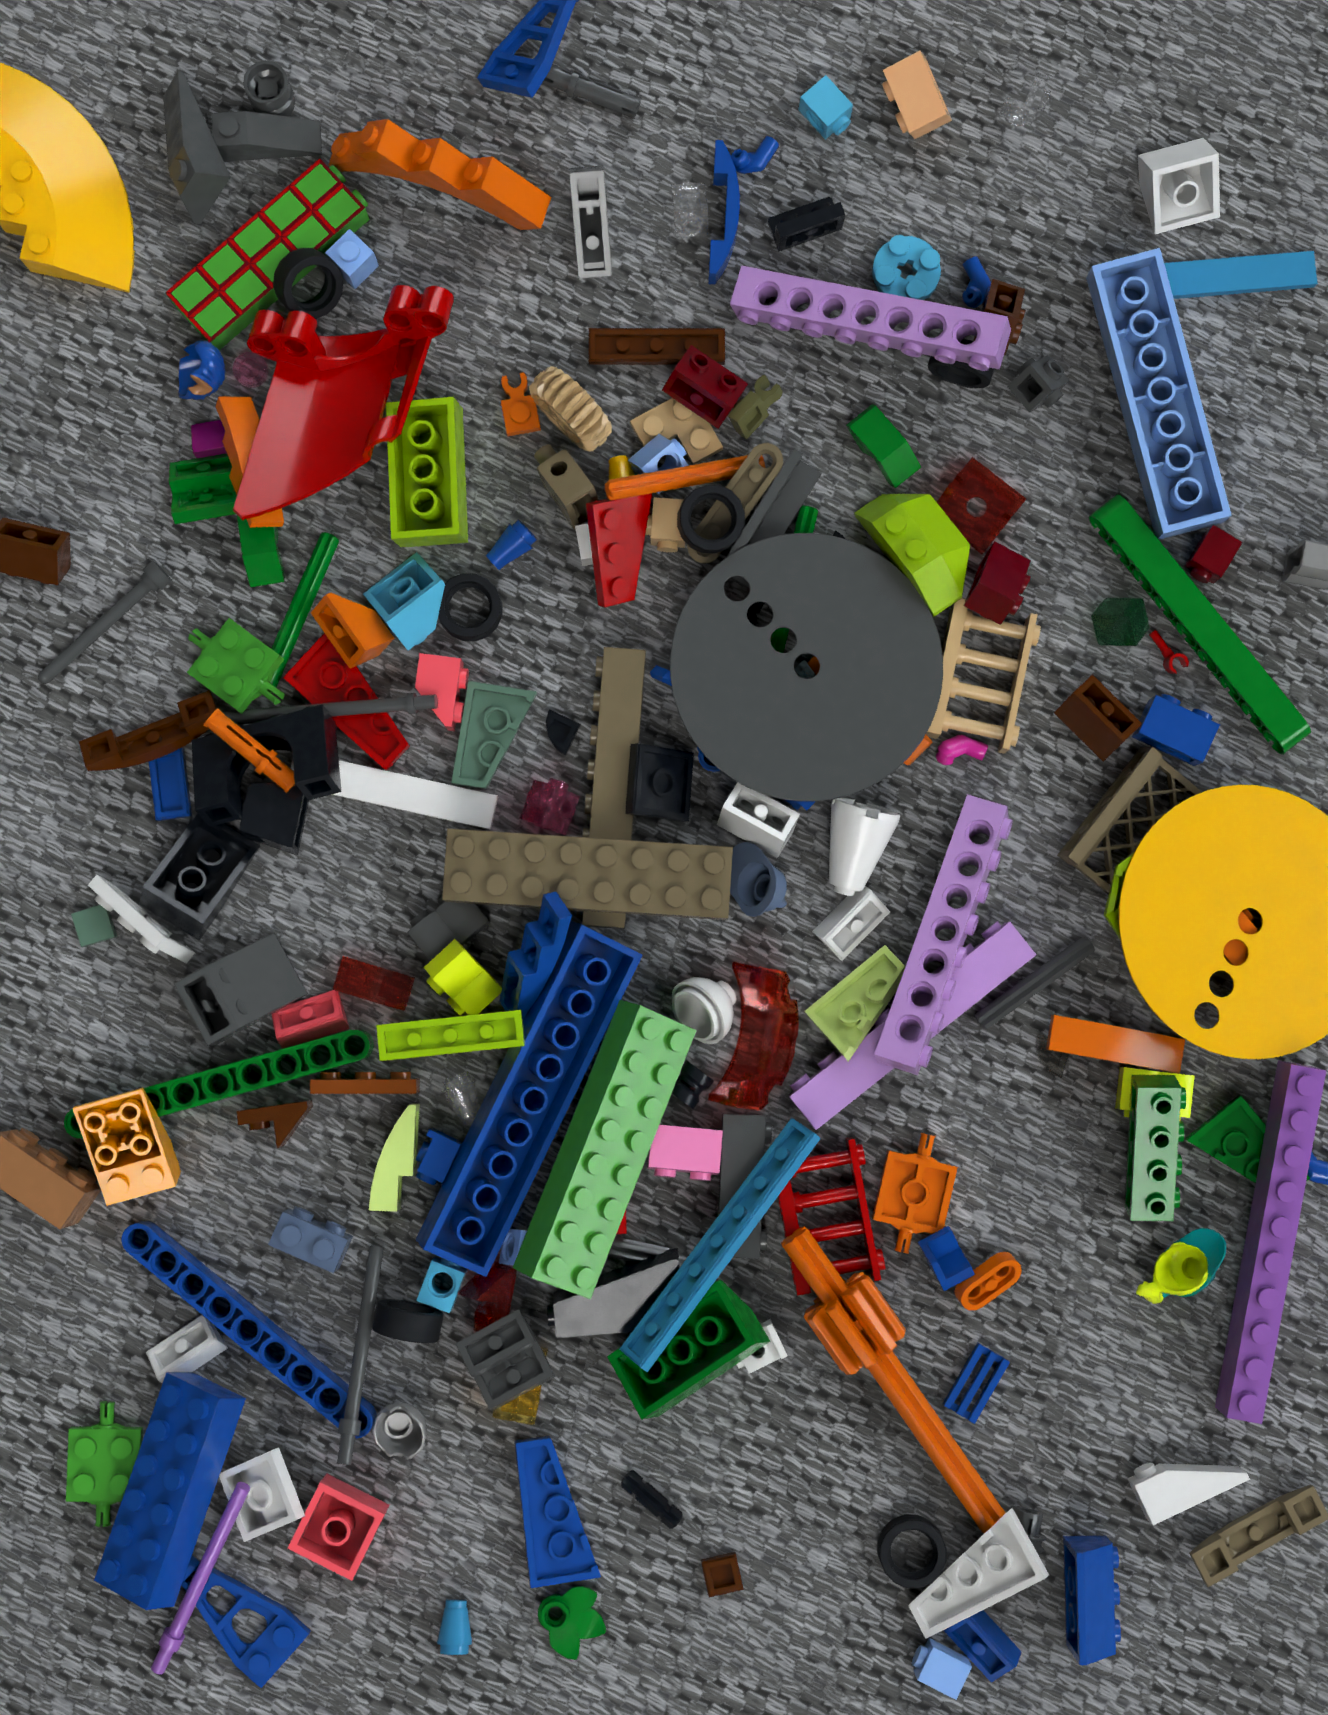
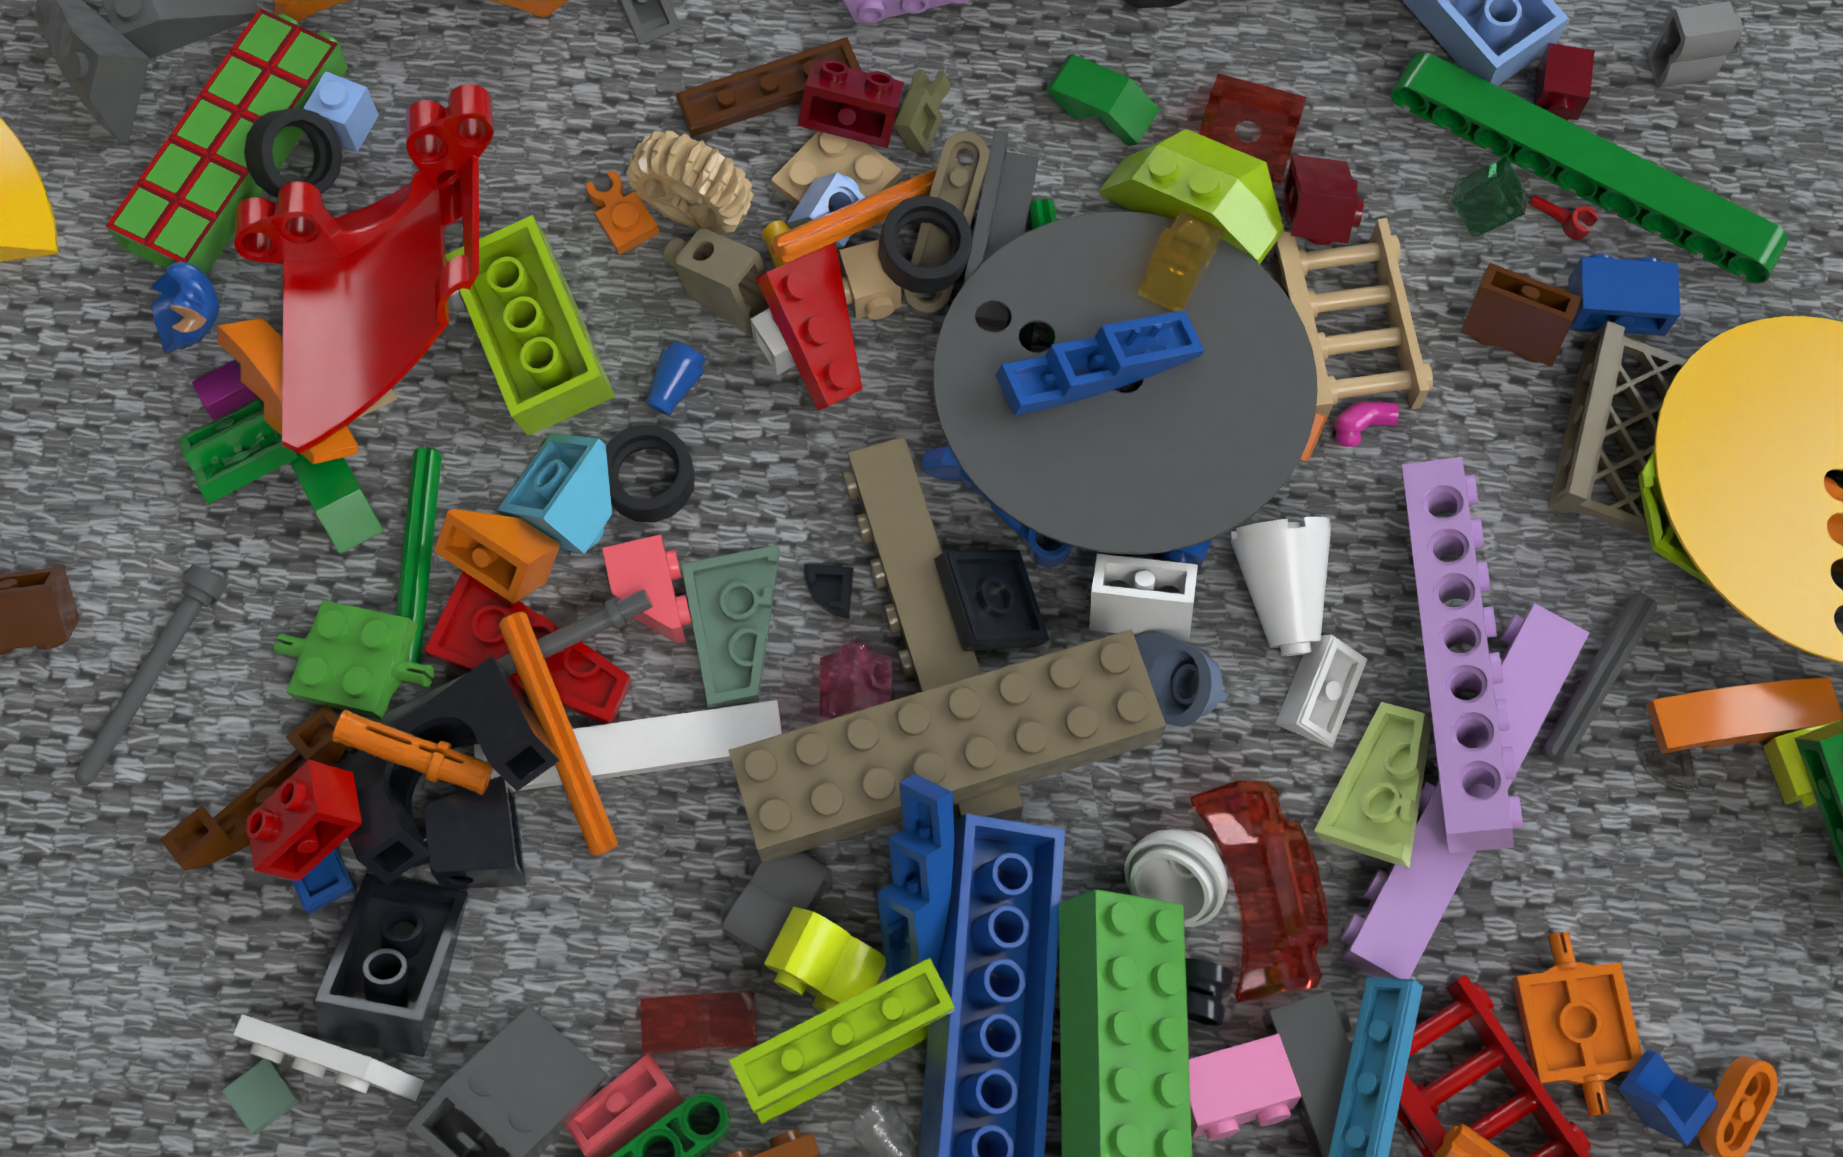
camera: 20 degrees left, 15 degrees down
(170, 768) = (303, 821): none -> red brick
(250, 369) = (251, 288): clear pink tile -> none
(348, 767) = (556, 725): none -> orange axle
(792, 652) = (1098, 364): none -> blue slope
(878, 597) = (1180, 261): none -> clear yellow slope

